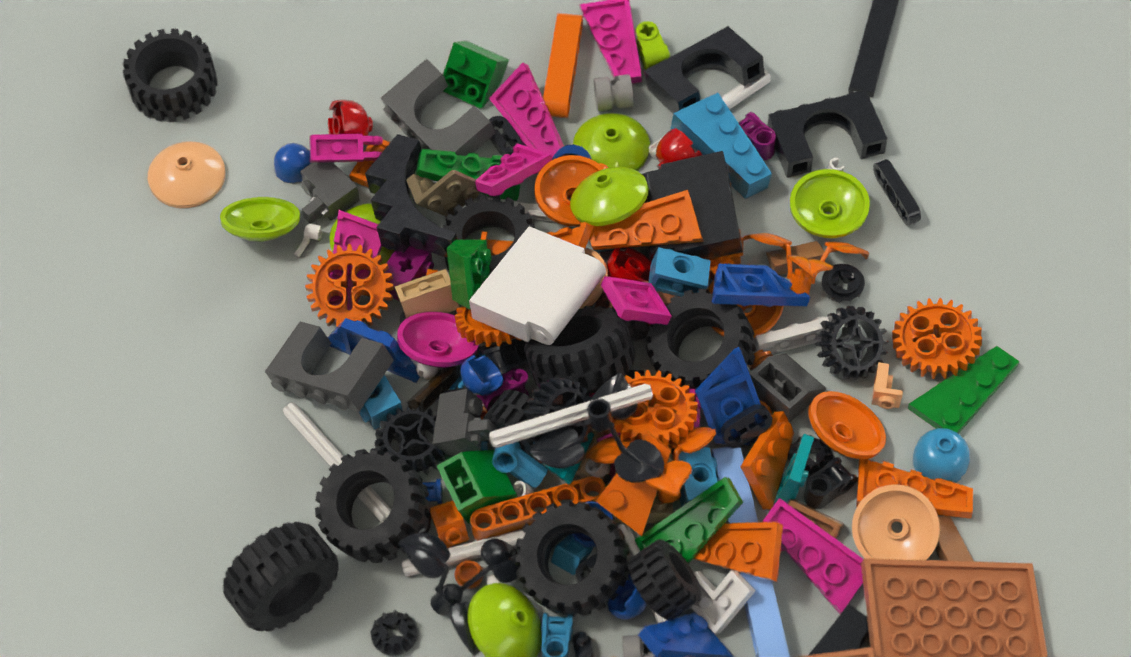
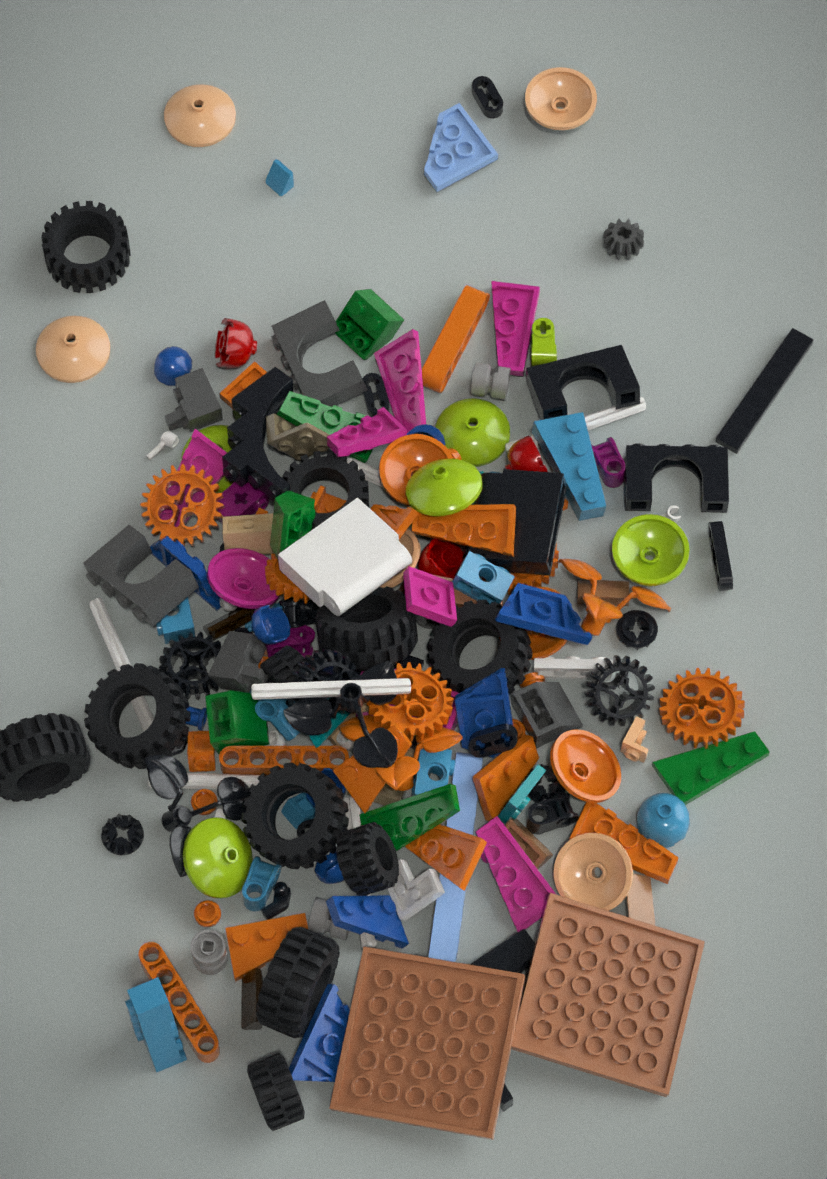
camera: 15 degrees right, 5 degrees up
(260, 218) = (124, 413): lime dish -> none
(342, 147) = (218, 367): dark pink hinge -> none

